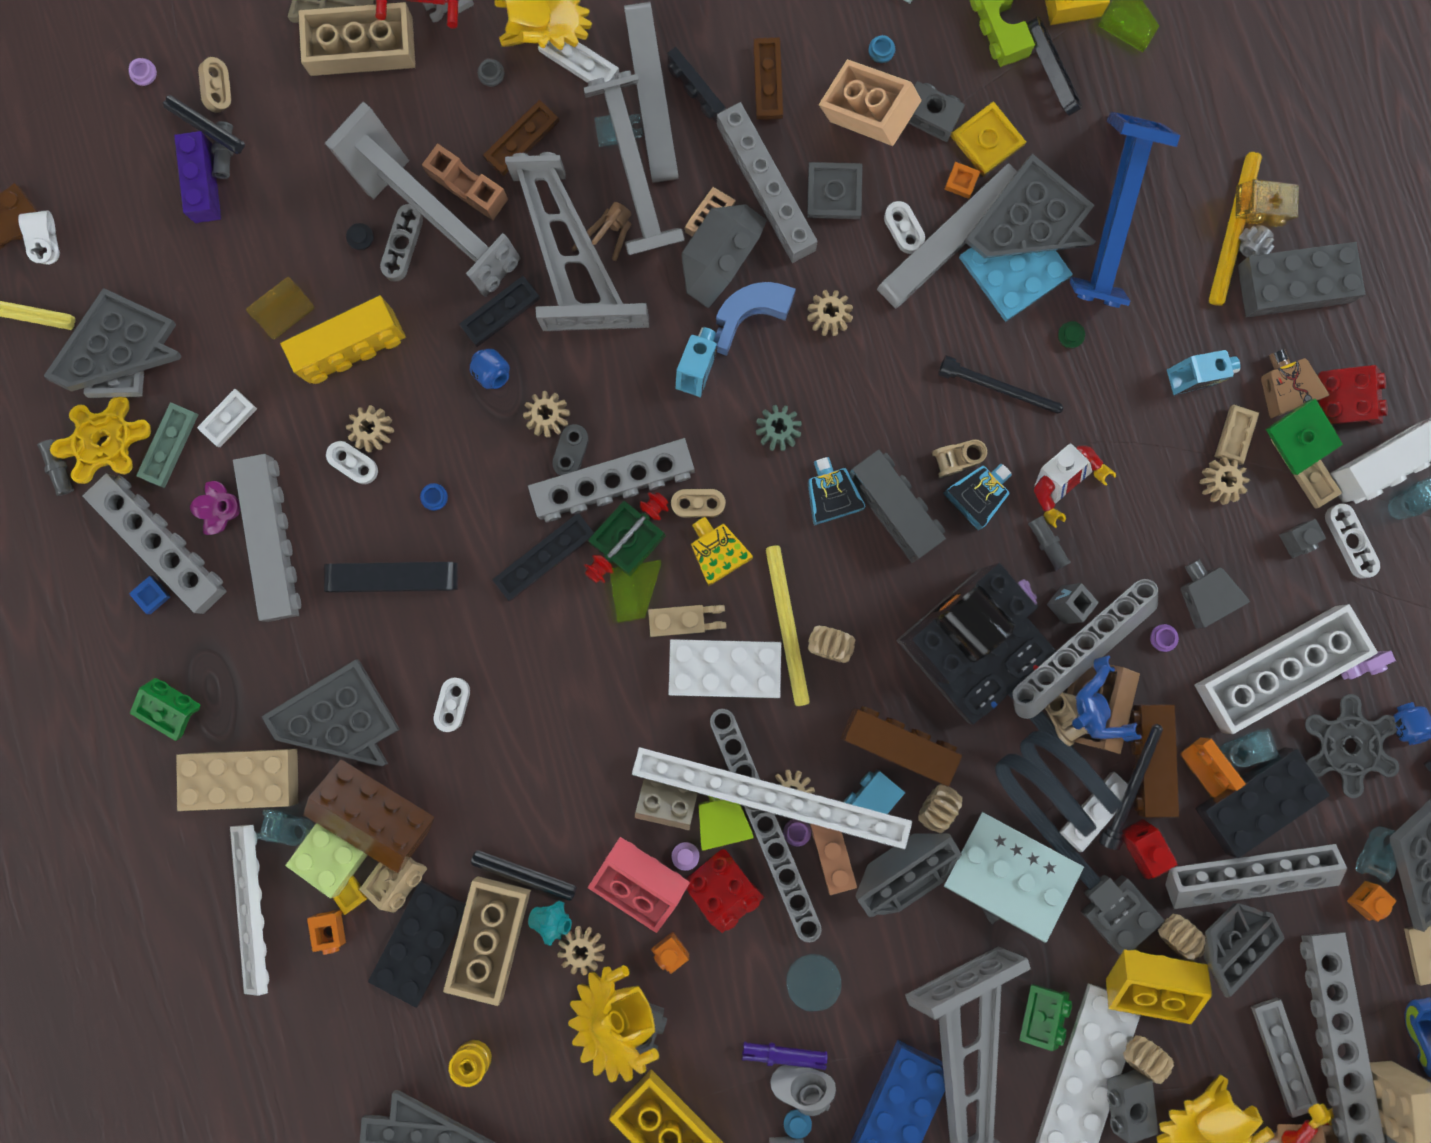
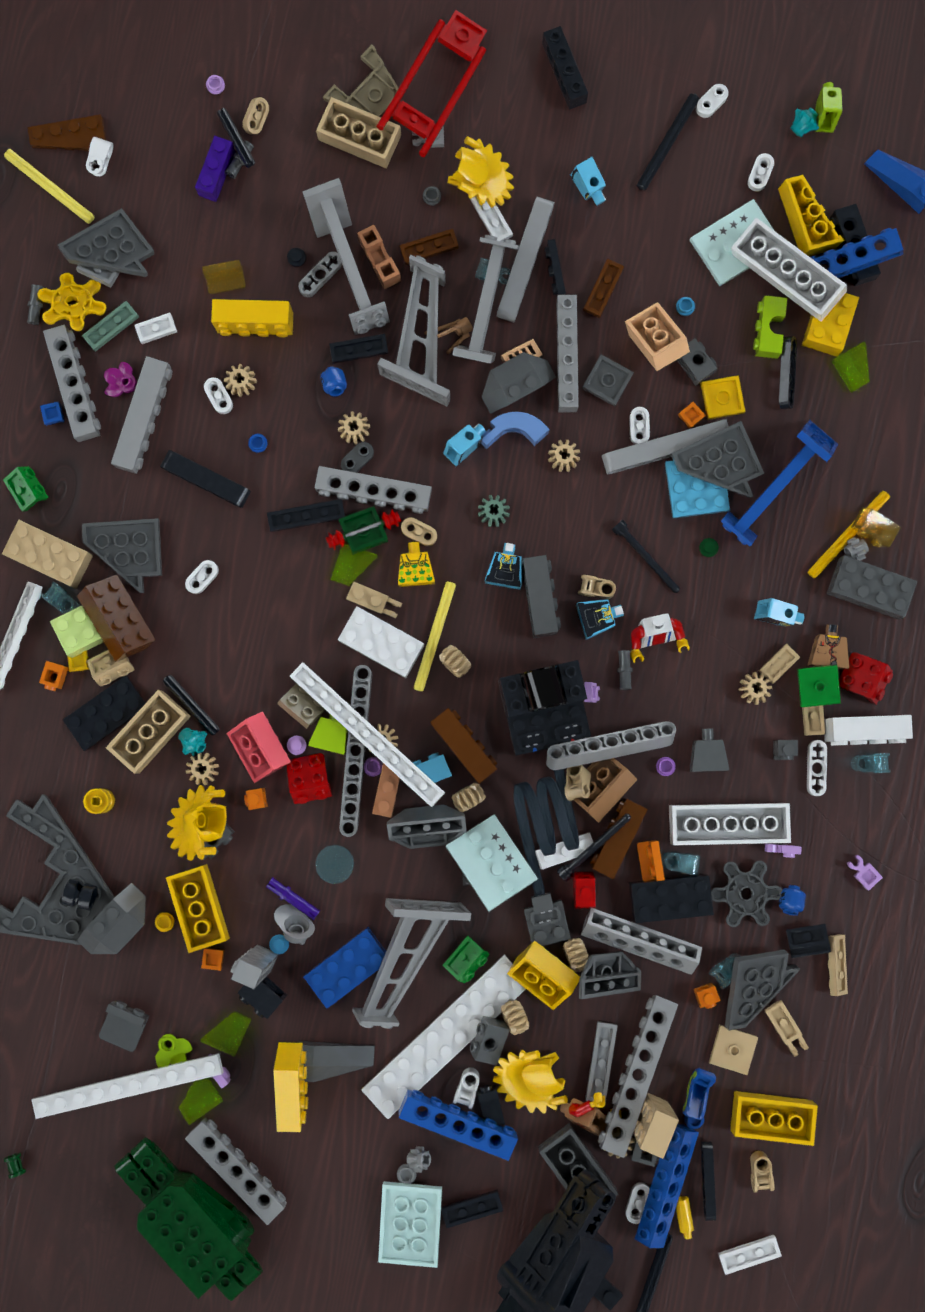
camera: 25 degrees right, 0 degrees up
(1072, 603) = (618, 714): dark grey brick -> none
(1095, 711) = (594, 785): blue piece -> none

